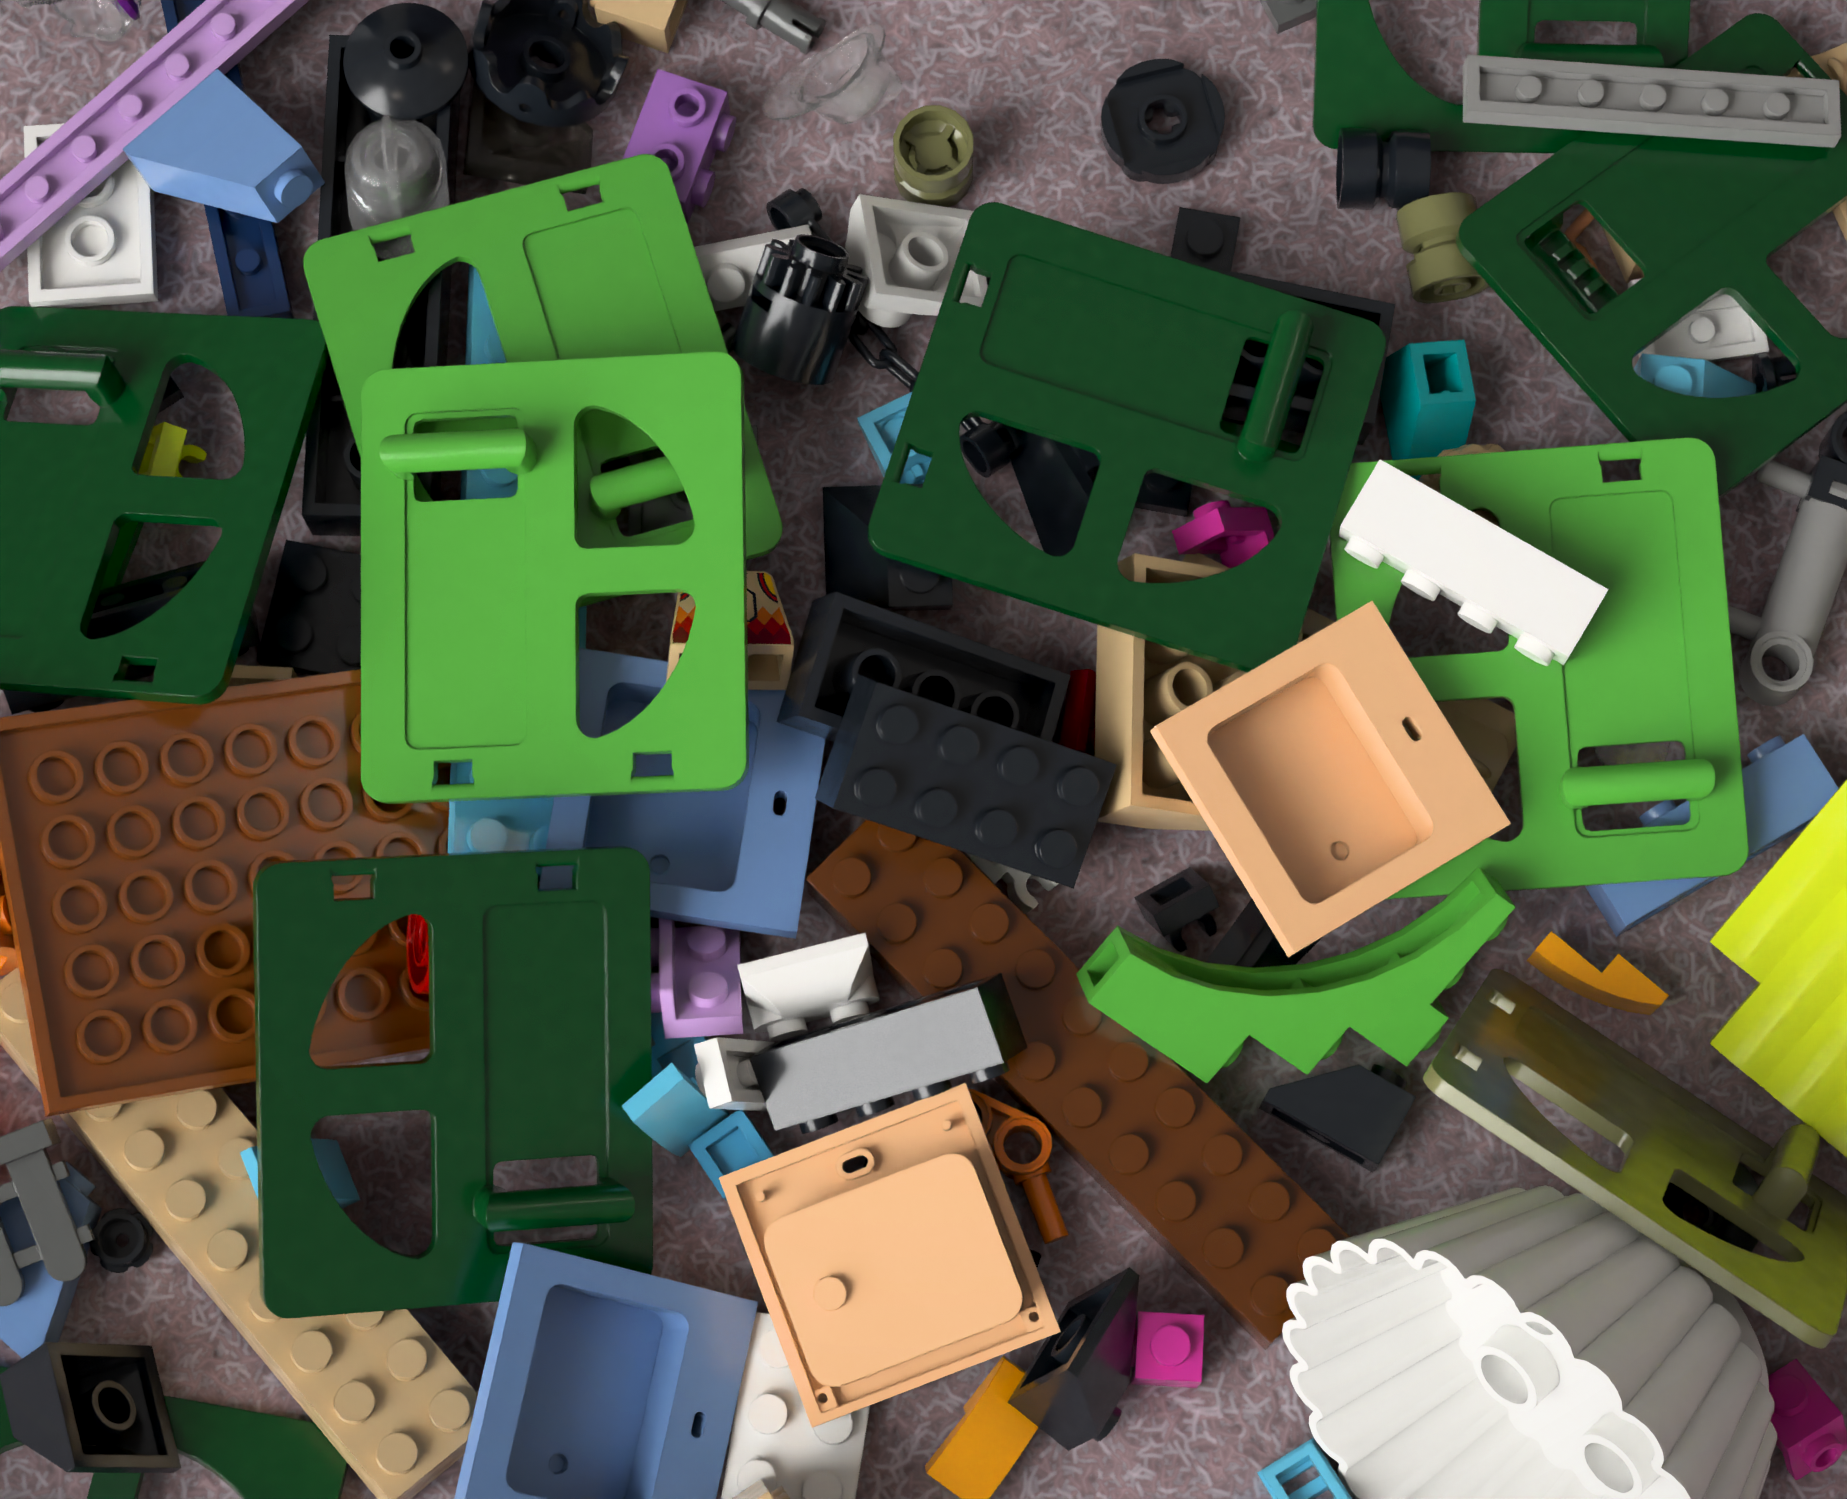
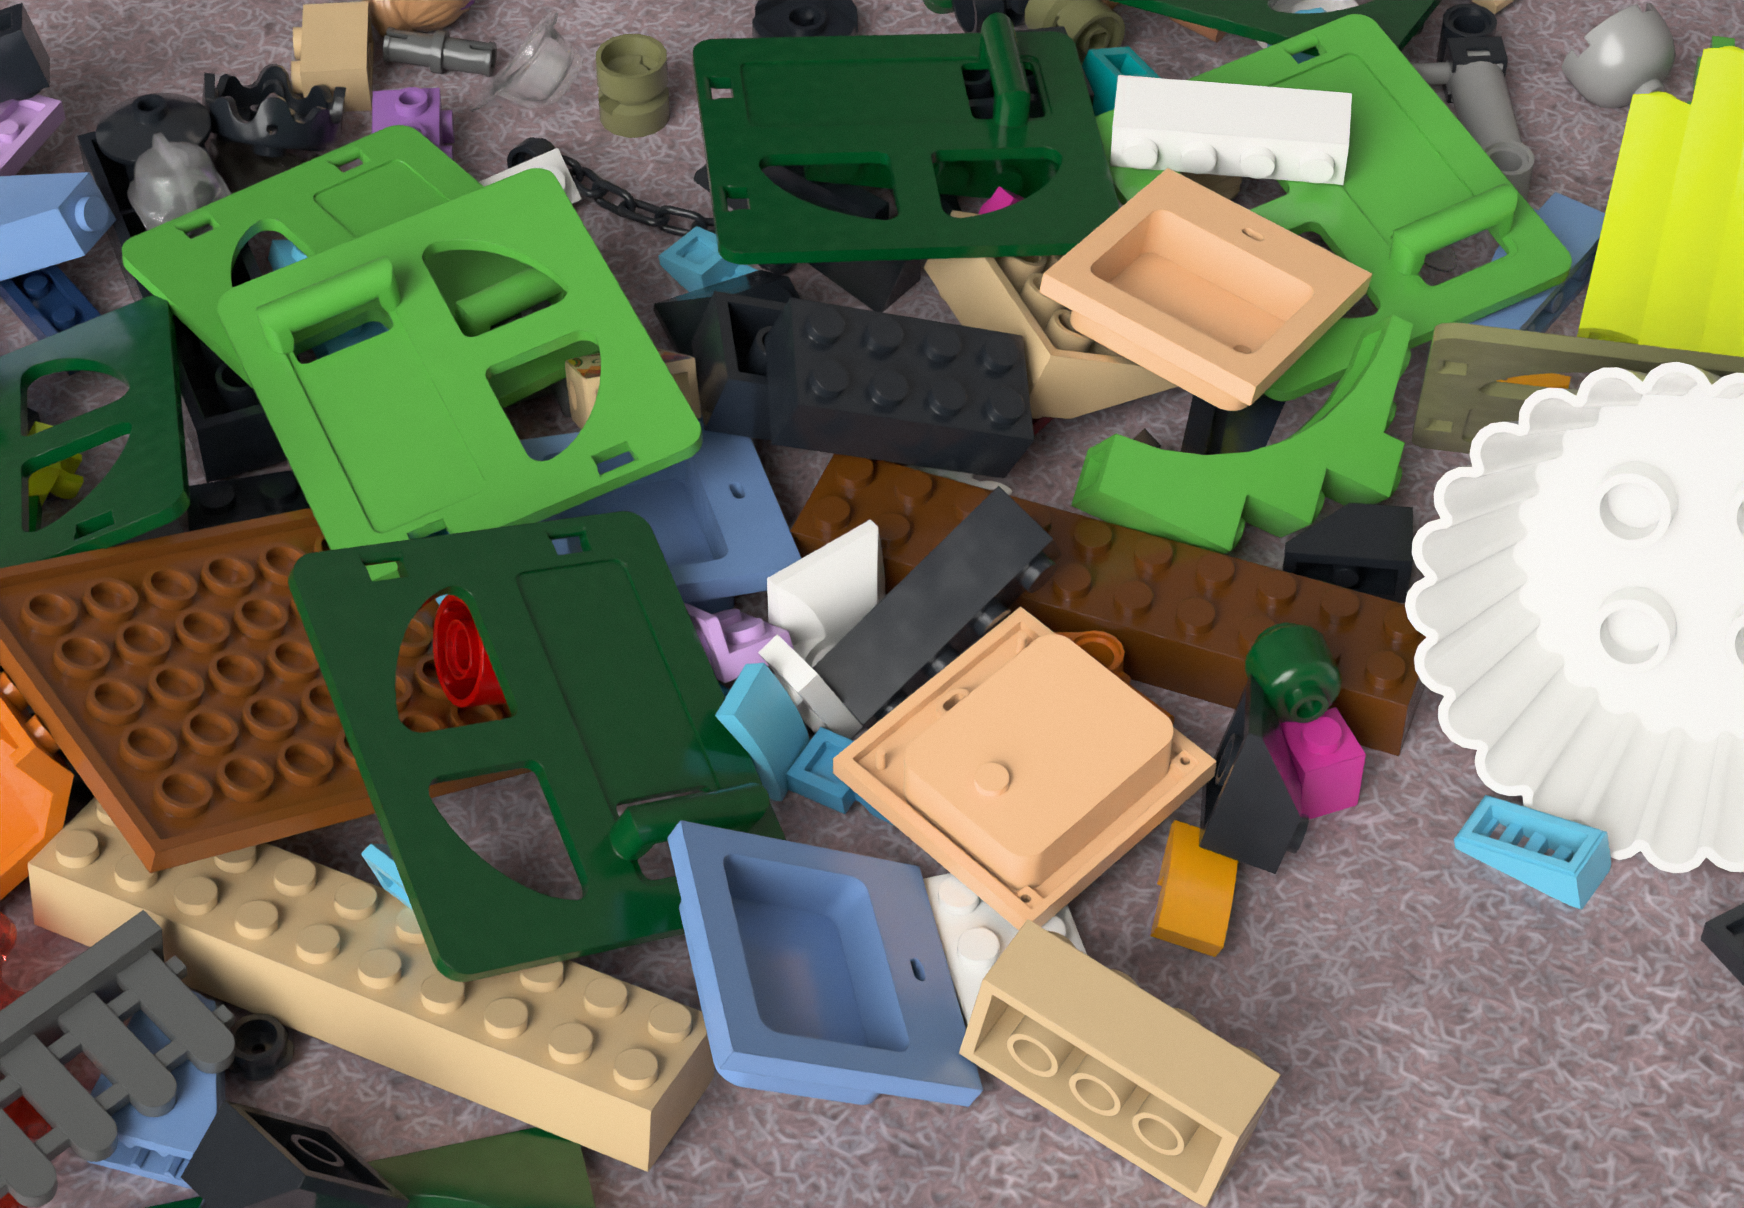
camera: 25 degrees left, 30 degrees down
(800, 310) = (589, 169): black gear -> none
(907, 257) = (643, 150): white slope -> none
(1170, 1281) = (1294, 671): none -> dark green head

